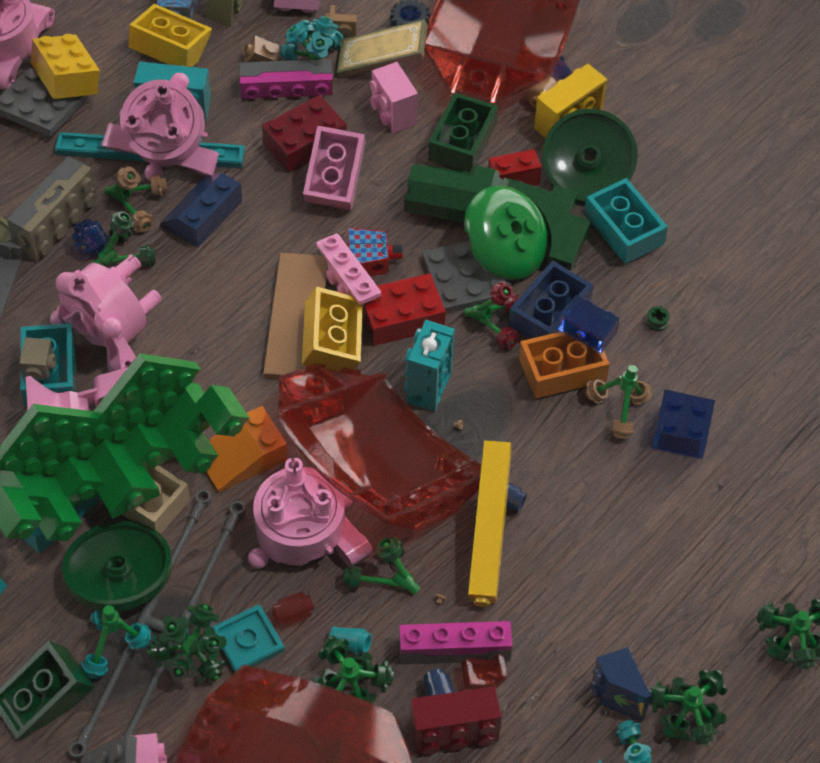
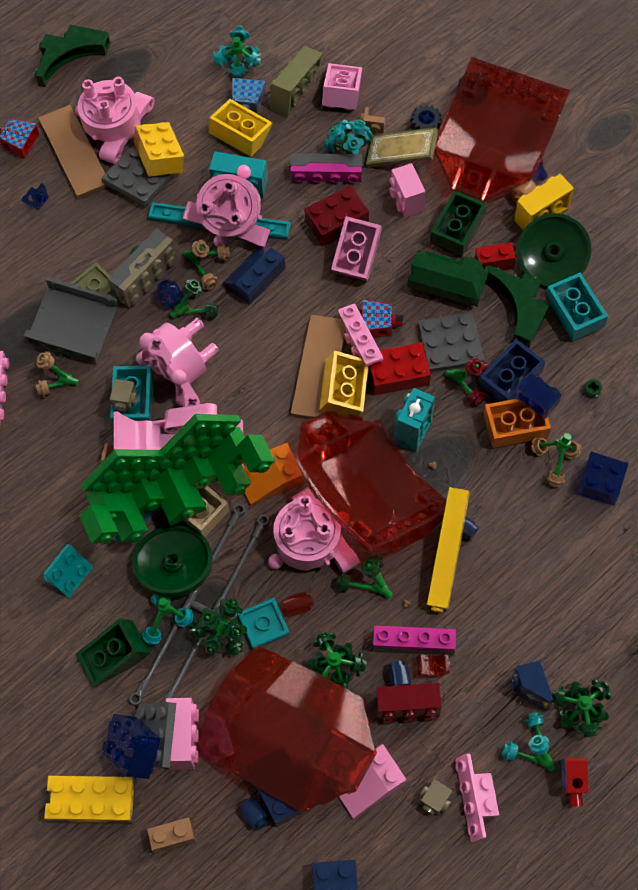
camera: 10 degrees right, 10 degrees up
(260, 50) = (309, 142): medium nougat bracket -> none
(358, 639) = (342, 631): teal cone -> none
(506, 232) = (483, 312): green brick -> none

